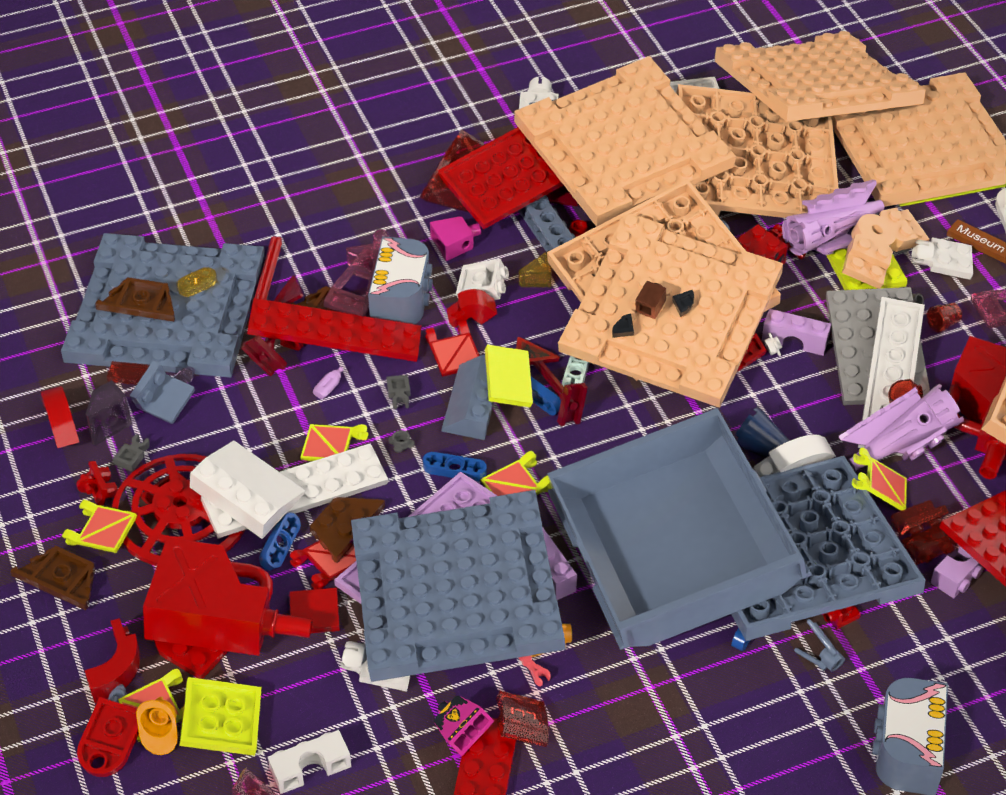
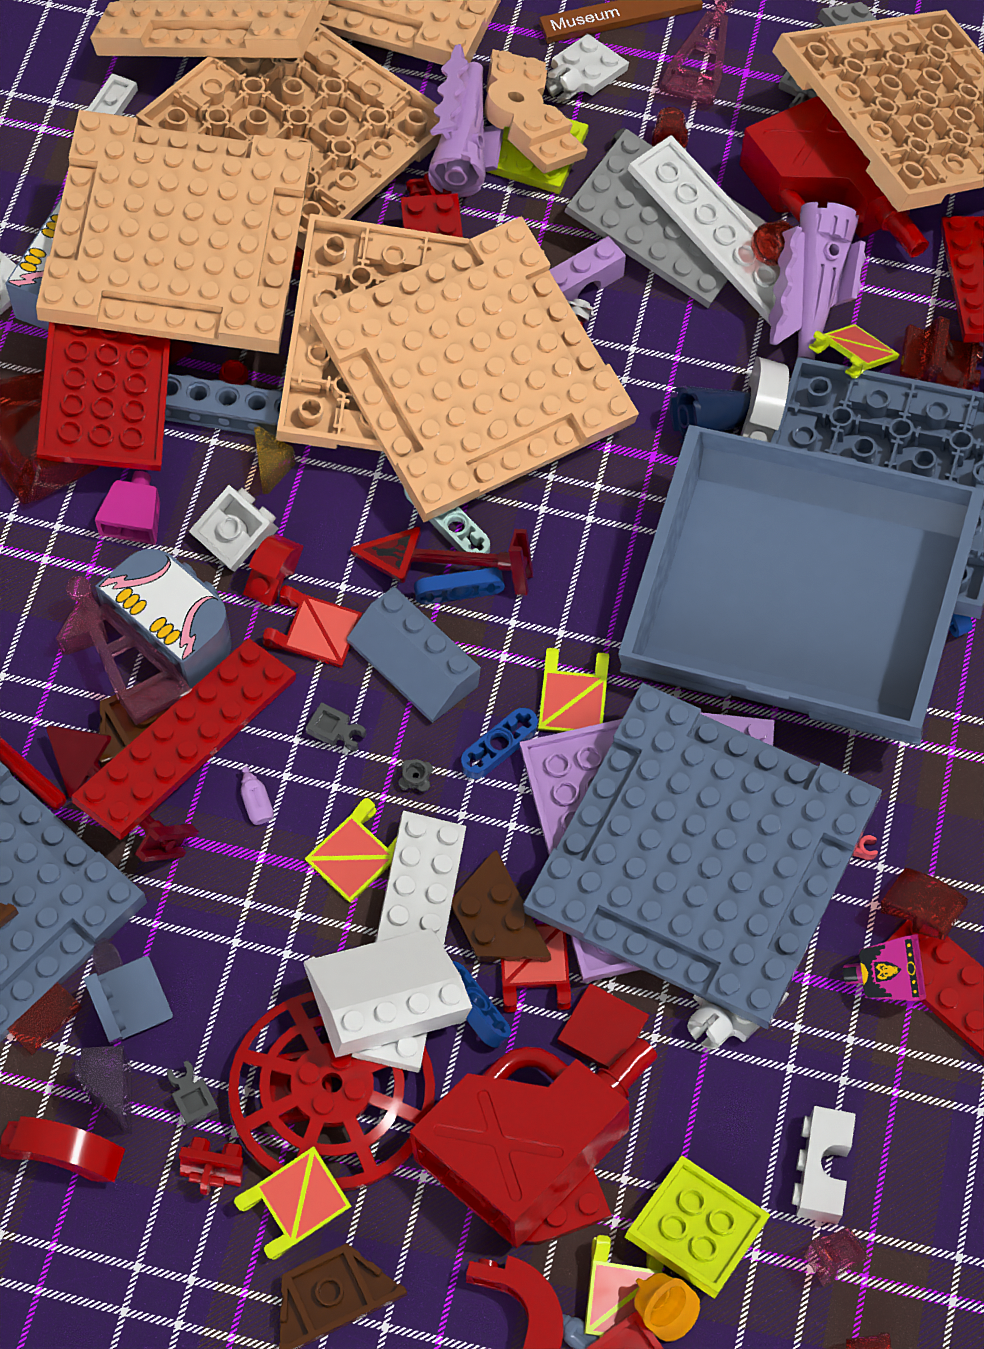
camera: 55 degrees left, 15 degrees up
(508, 376) = (430, 597): neon yellow tile -> none
(623, 327) = (471, 432): black tile -> none
(650, 299) = (466, 377): copper brick -> none
(684, 302) = (493, 349): black tile -> none

